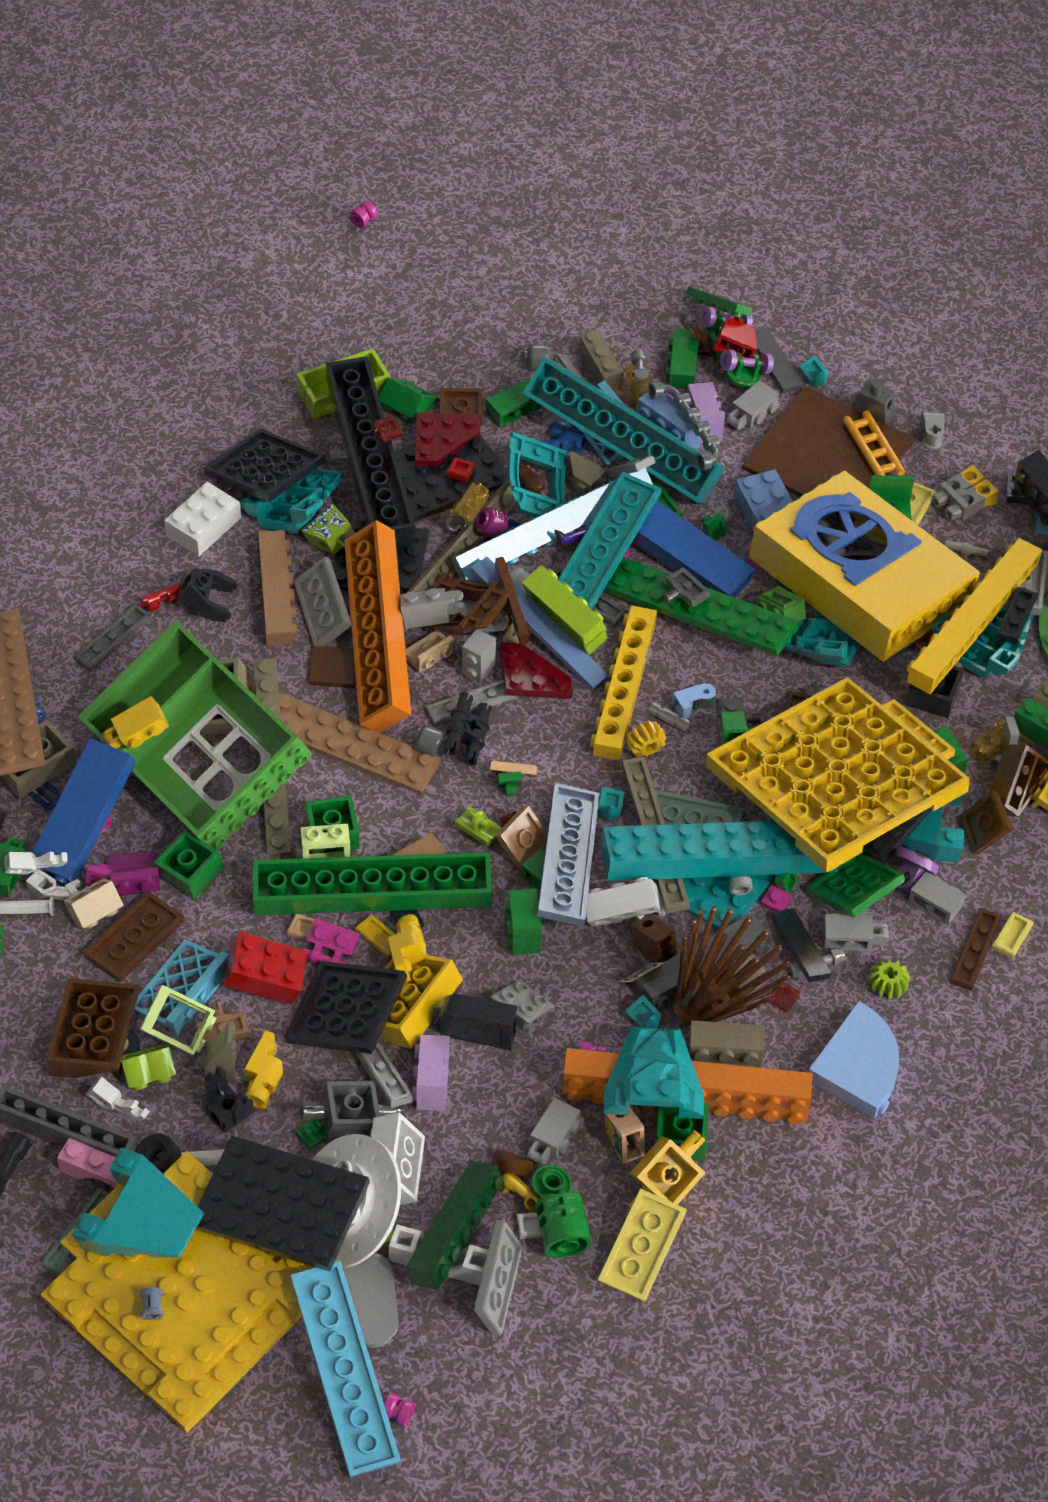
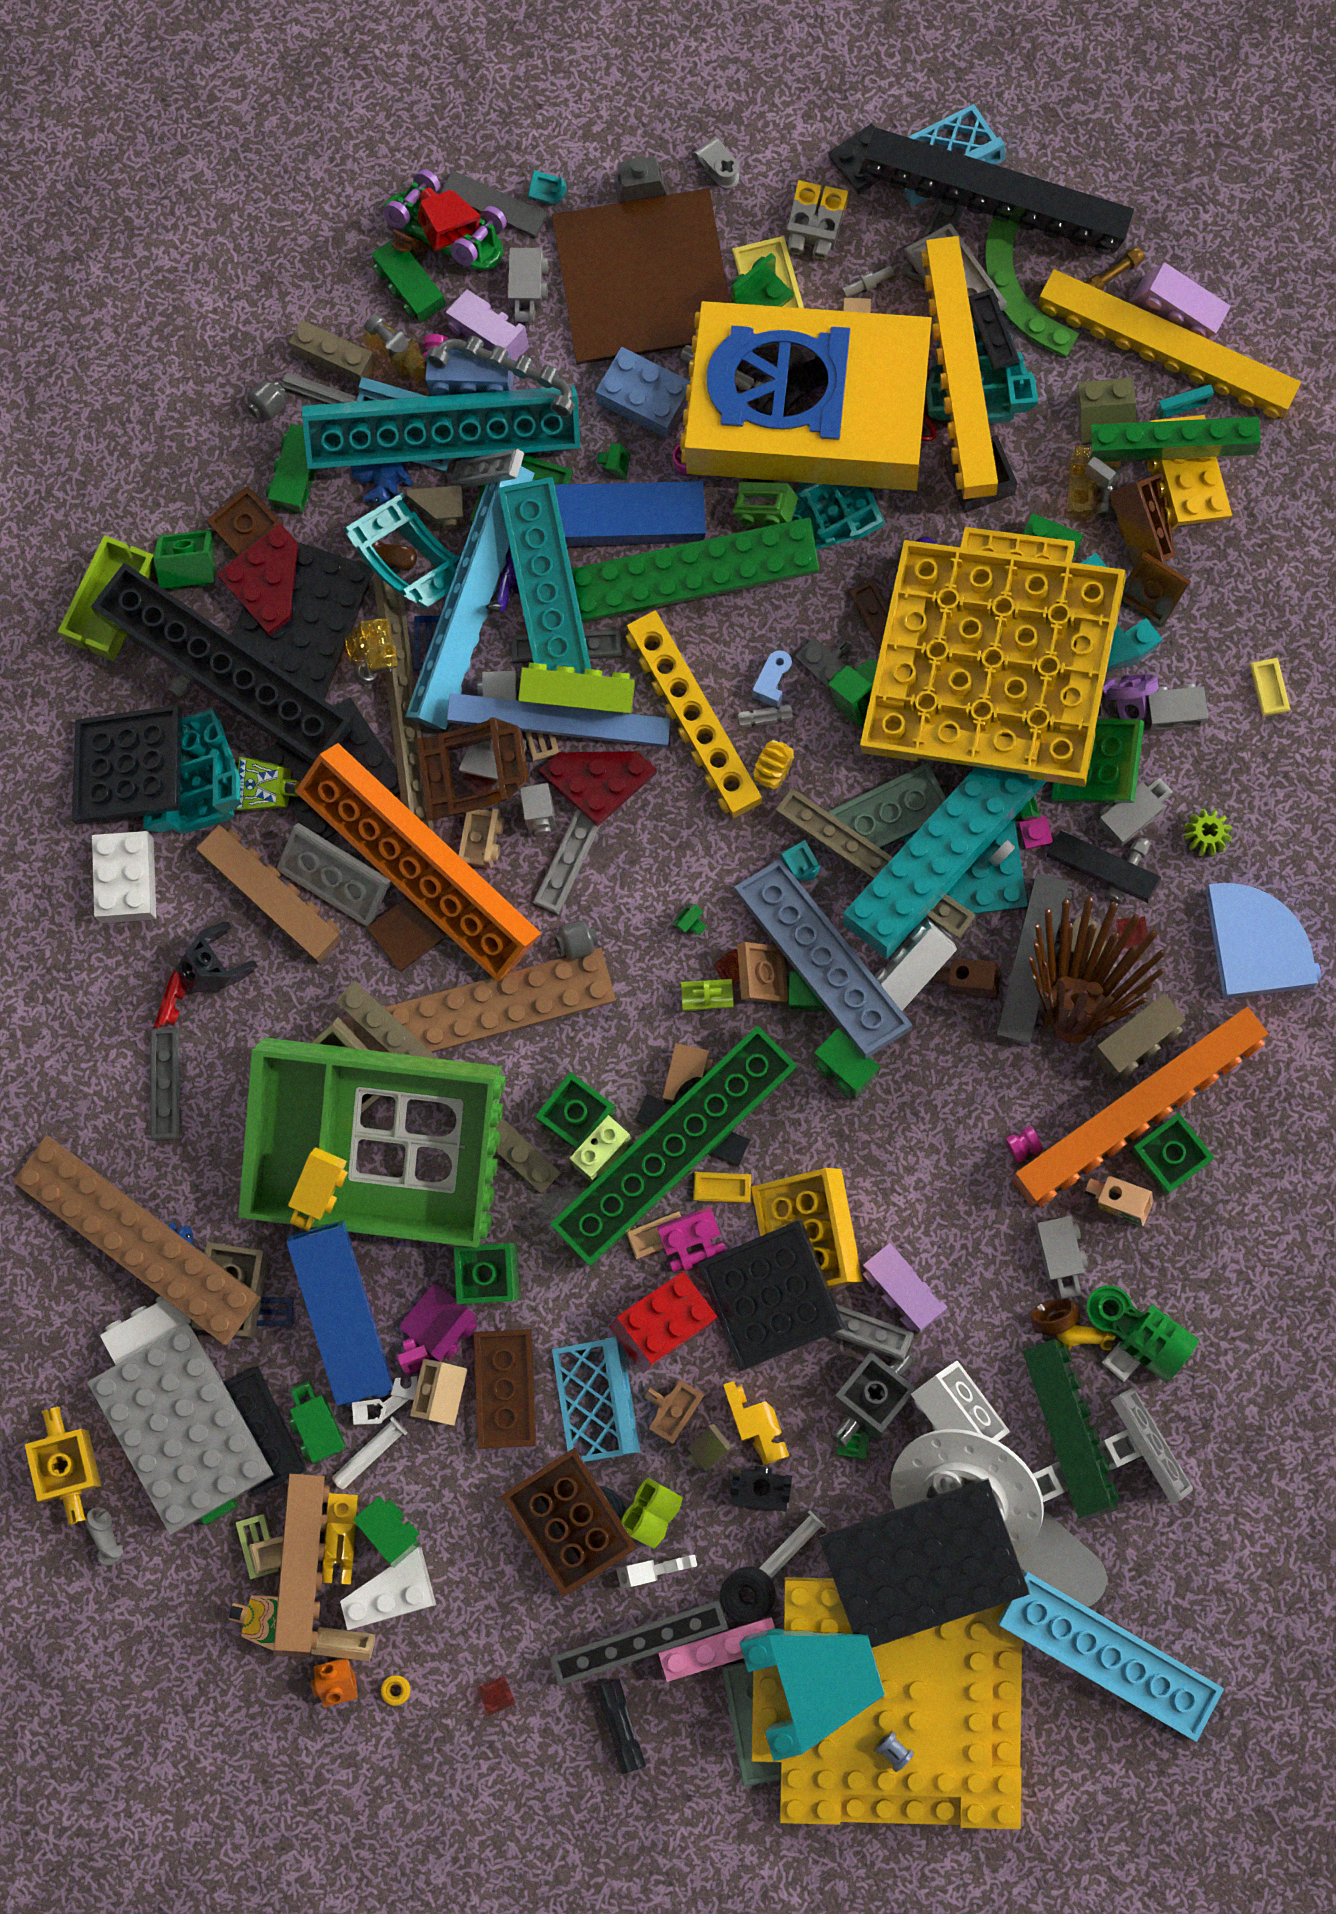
camera: 30 degrees left, 25 degrees up
(27, 862) = (343, 1409): white piece -> none
(155, 1008) = (615, 1459): yellowish green window -> none
(388, 428) = (227, 633): clear red plate -> none
(399, 1409) = (1184, 1640): dark pink wheel -> none
(408, 944) = (766, 1184): yellow plate -> none
(430, 607) = (450, 798): light grey hinge -> none
(460, 470) = (320, 604): red tile -> none
(467, 729) = (600, 896): black pin -> none
(477, 1020) = (898, 1205): black window -> none
(492, 522) = (411, 642): magenta head -> none
(513, 603) = (527, 728): reddish brown tile -> none
(514, 767) = (679, 900): light nougat tile -> none
(529, 1003) = (914, 1144): light grey hinge -> none
(641, 972) = (992, 1022): sticker -> none
(642, 1245) = (1241, 1301): light yellow plate -> none
(644, 1013) = (1031, 1061): teal plate -> none
(654, 1072) = (1118, 1134): teal wedge -> none
(678, 1160) = (1204, 1214): yellow brick -> none
(686, 587) = (669, 567): dark grey plate -> none
(723, 304) = (383, 184): green plate -> none
(876, 435) = (688, 248): light orange bar -> none
(975, 949) = (1251, 731): reddish brown tile -> none

